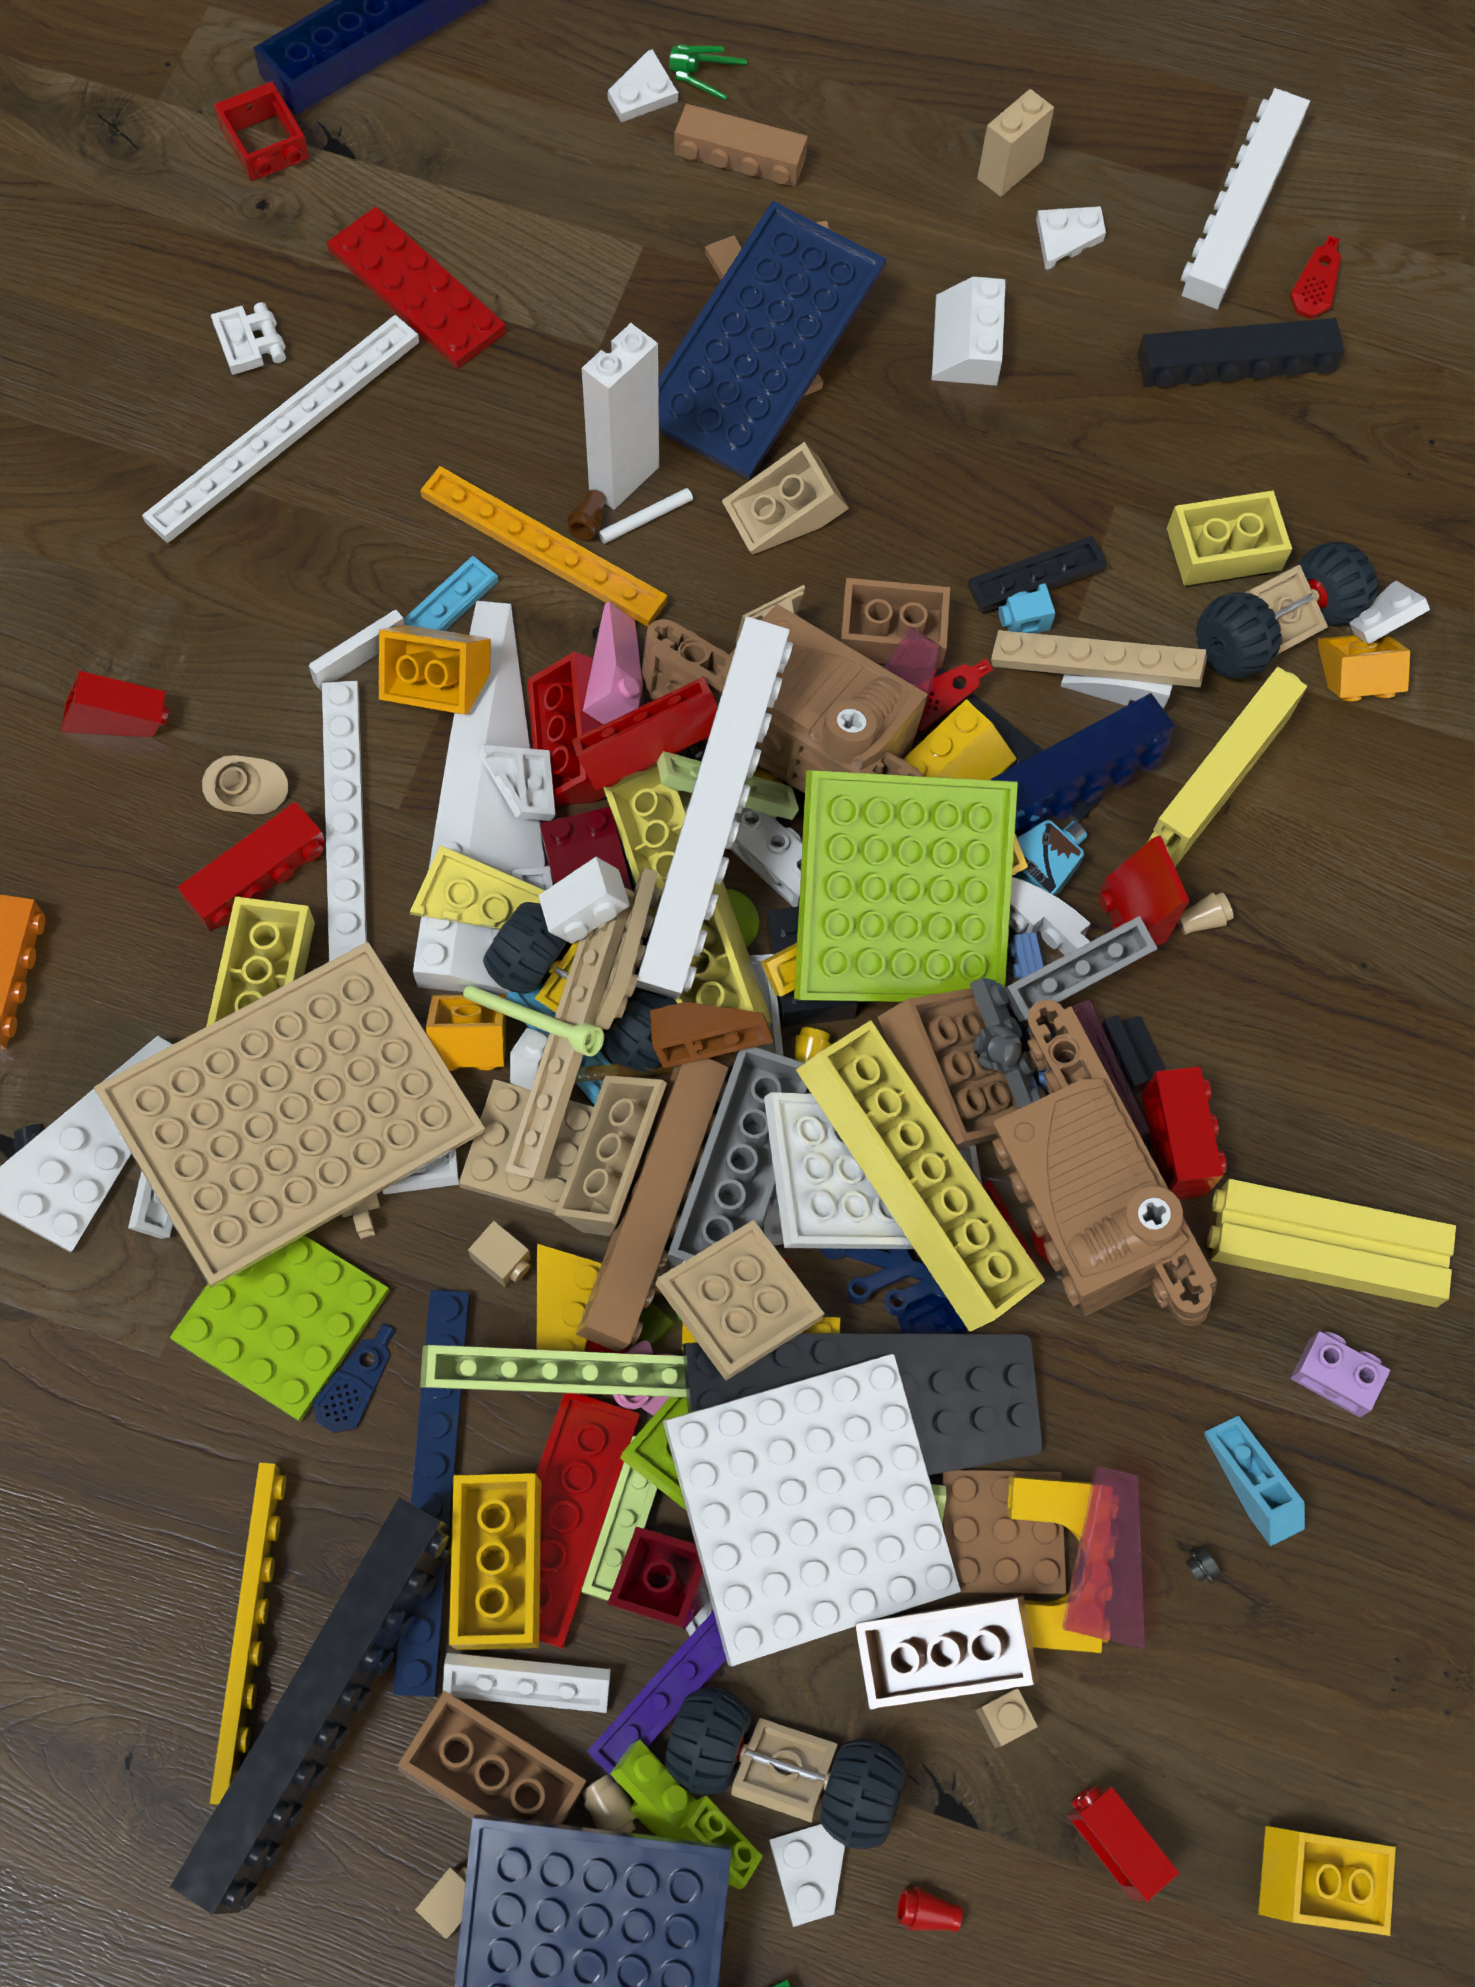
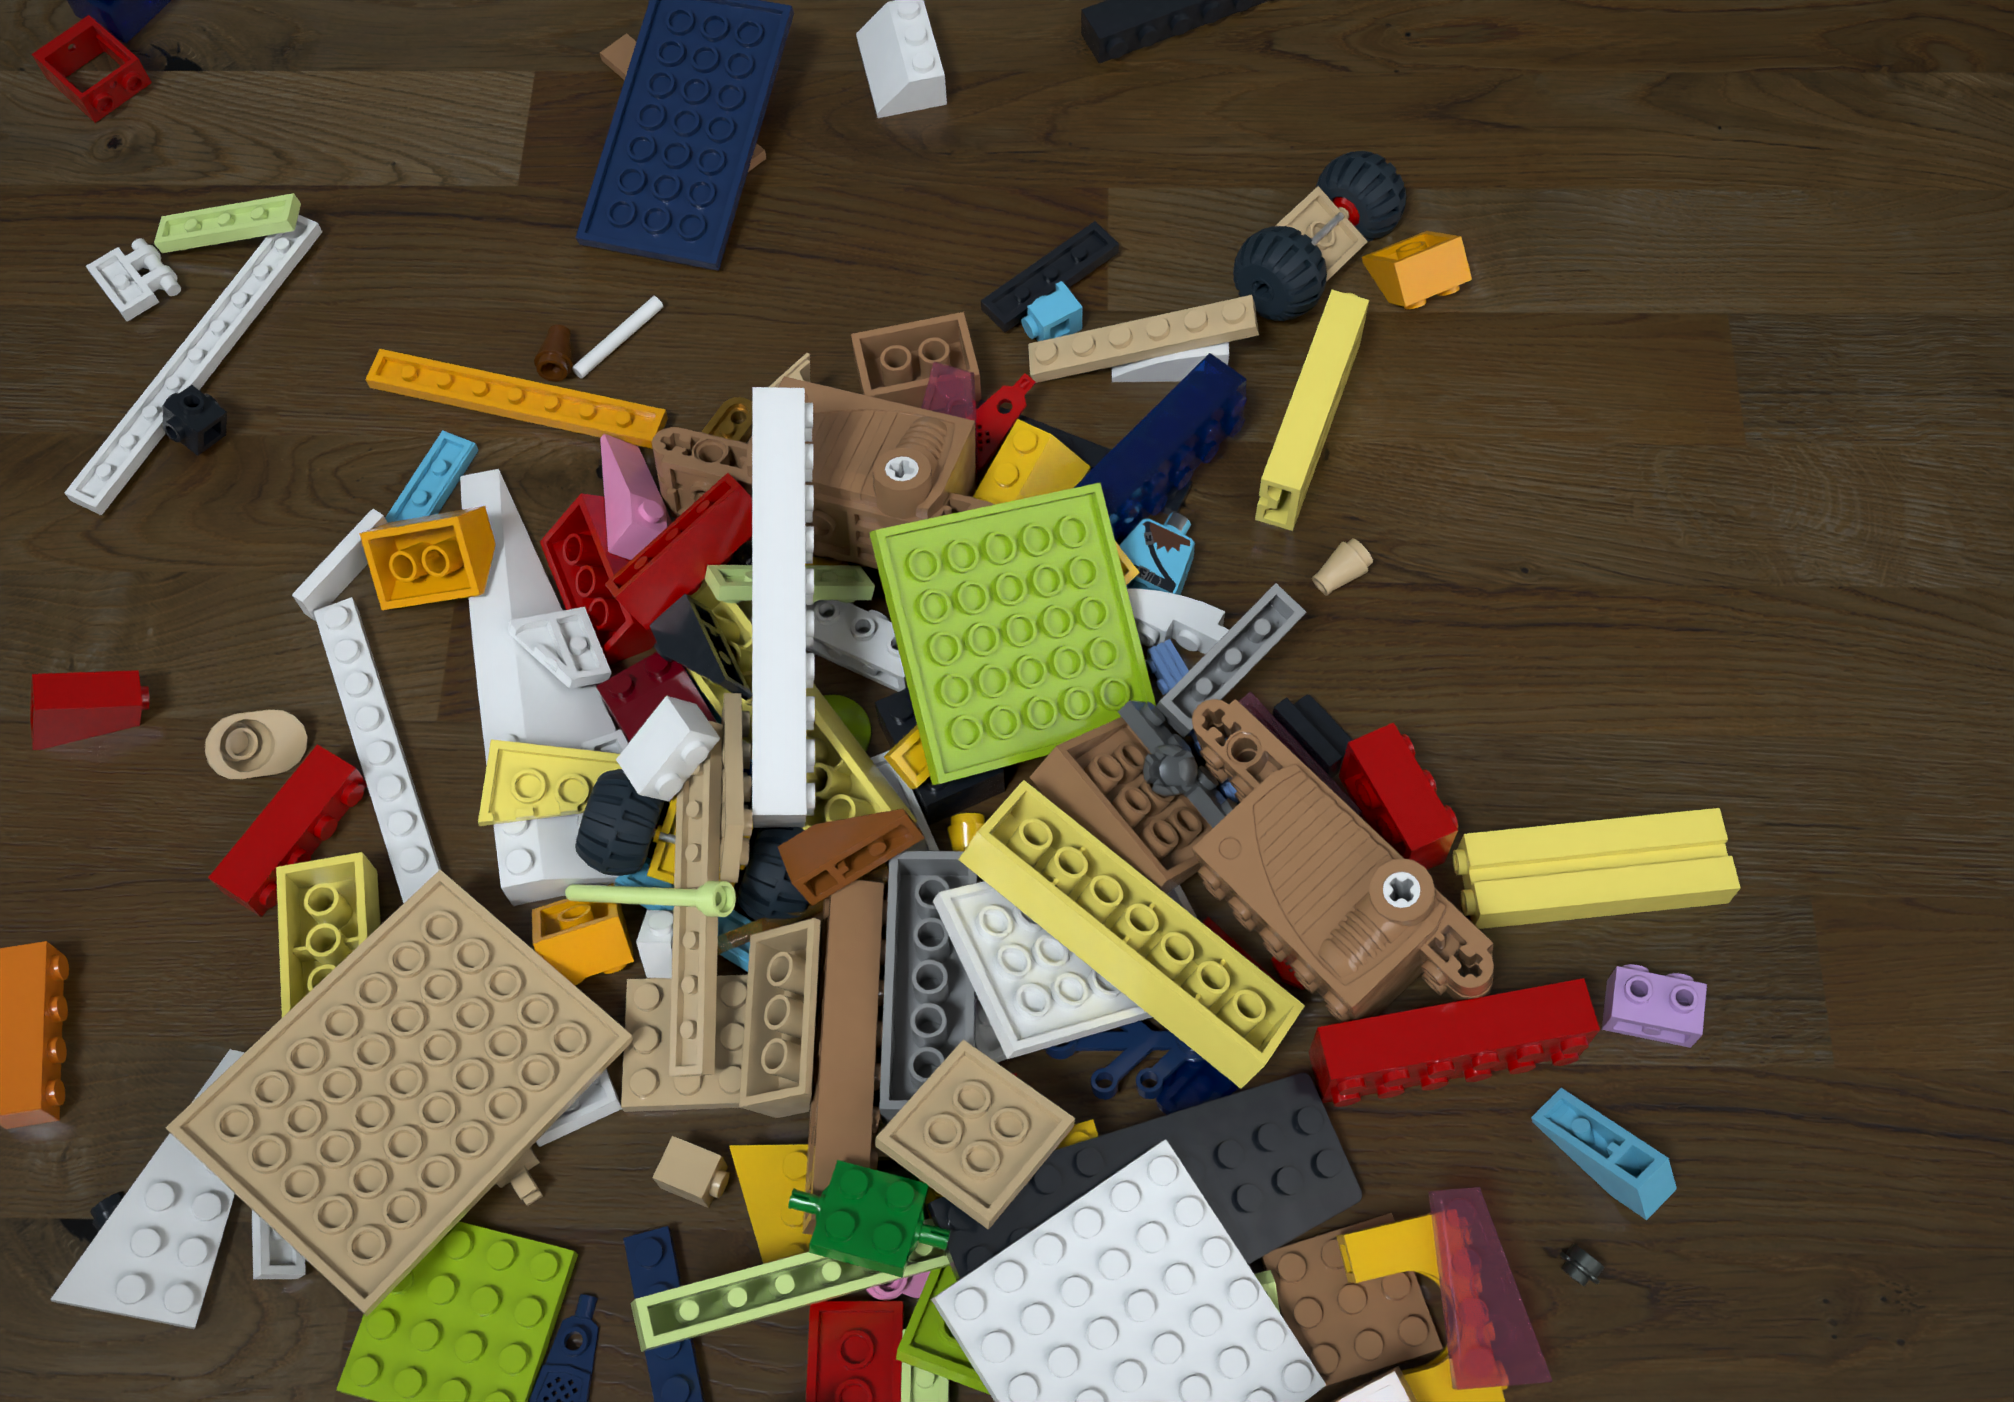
camera: 10 degrees left, 5 degrees down
(266, 482) = (194, 419): none -> black brick
(341, 312) = (227, 223): none -> yellowish green plate
(416, 287) = (327, 185): red plate -> none
(622, 415) = (558, 232): white brick -> none
(633, 812) = (695, 640): none -> black slope
(633, 1340) = (869, 1218): none -> green plate
(711, 627) = (723, 421): none -> pearl gold plate
(785, 501) = (762, 278): tan slope -> none
(1146, 888) = (1271, 552): red slope -> none
(1159, 1350) = (1452, 1042): none -> red brick
(1229, 538) = (1236, 182): light yellow brick -> none
(1388, 612) = (1425, 207): white wing -> none

